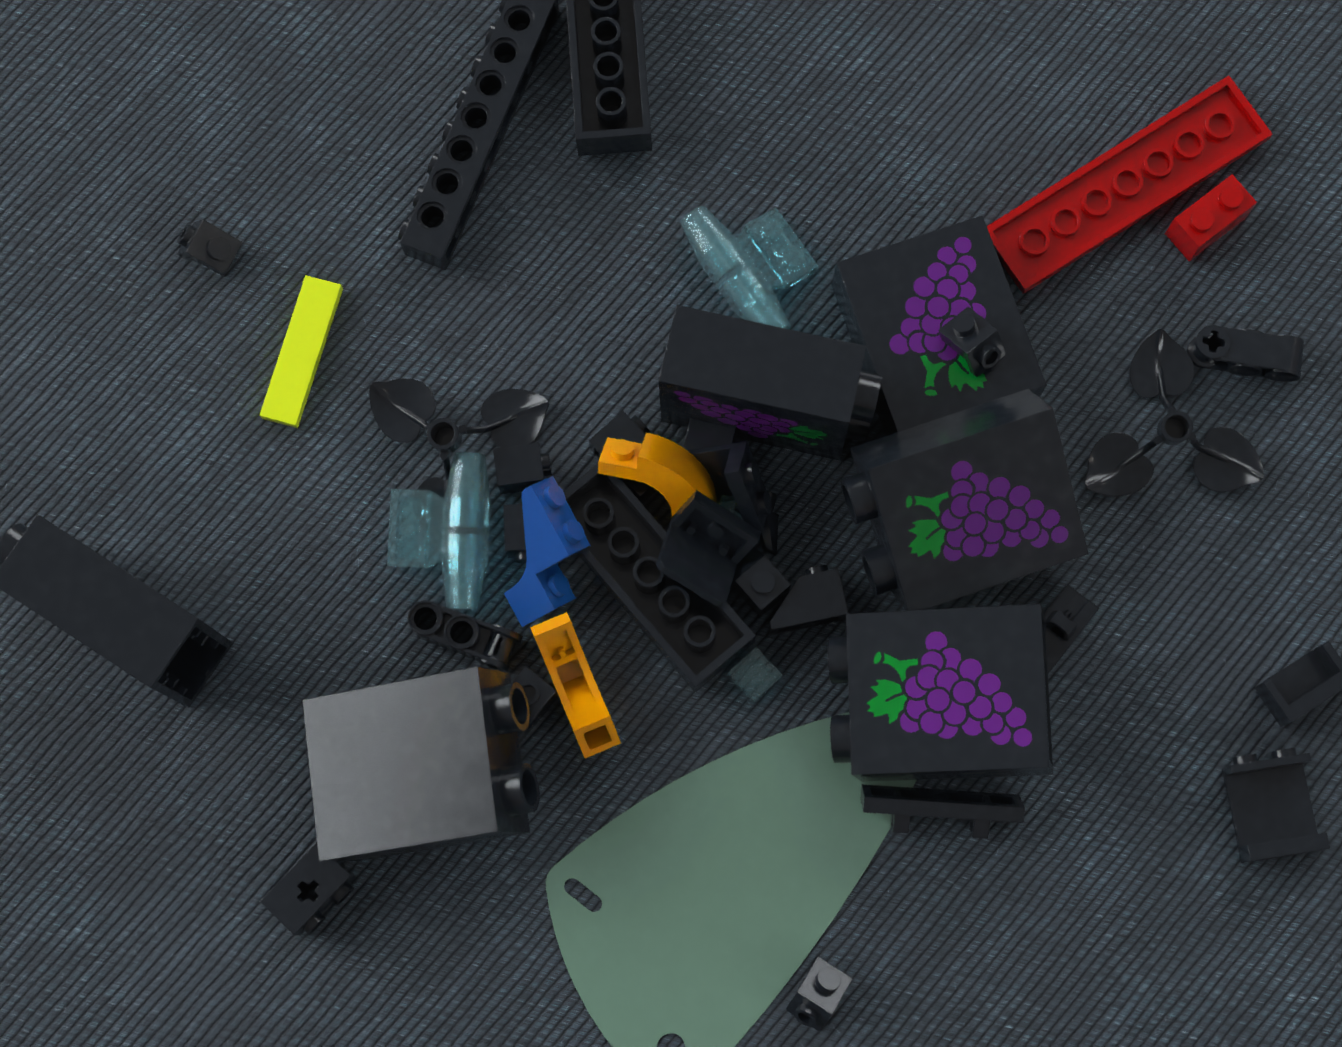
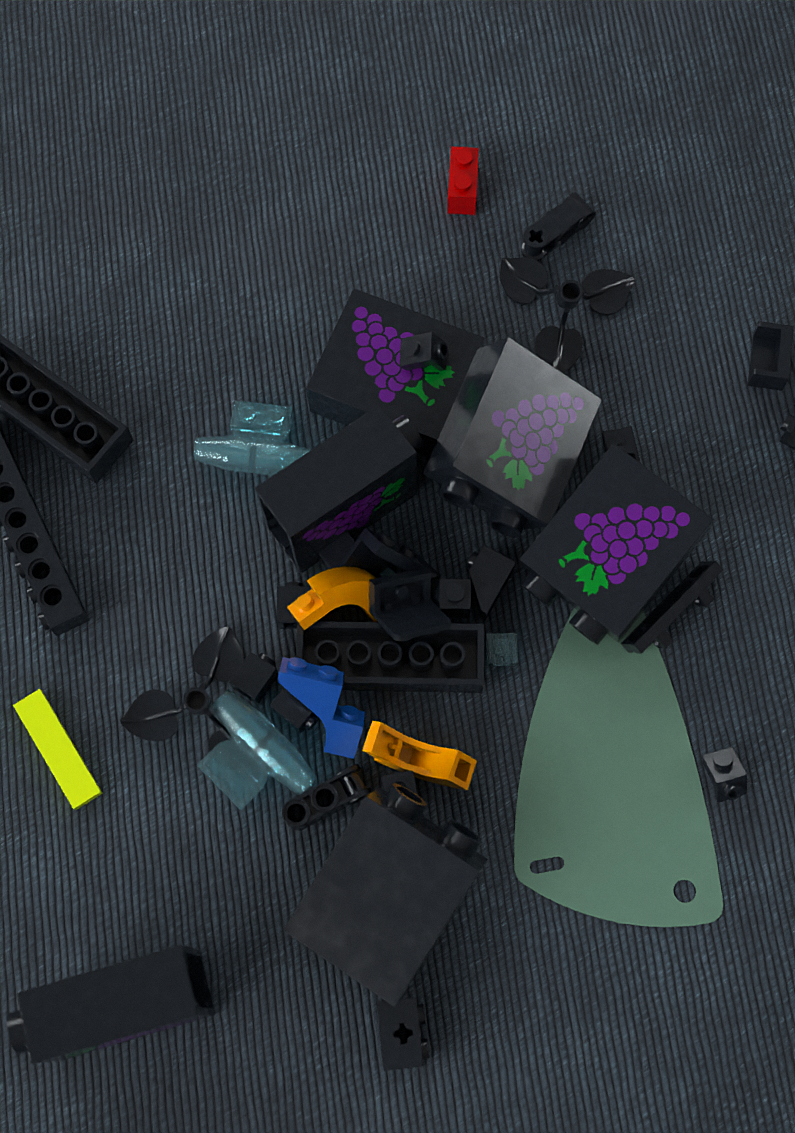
camera: 50 degrees left, 5 degrees down
(1127, 184) = (402, 204): red plate -> none

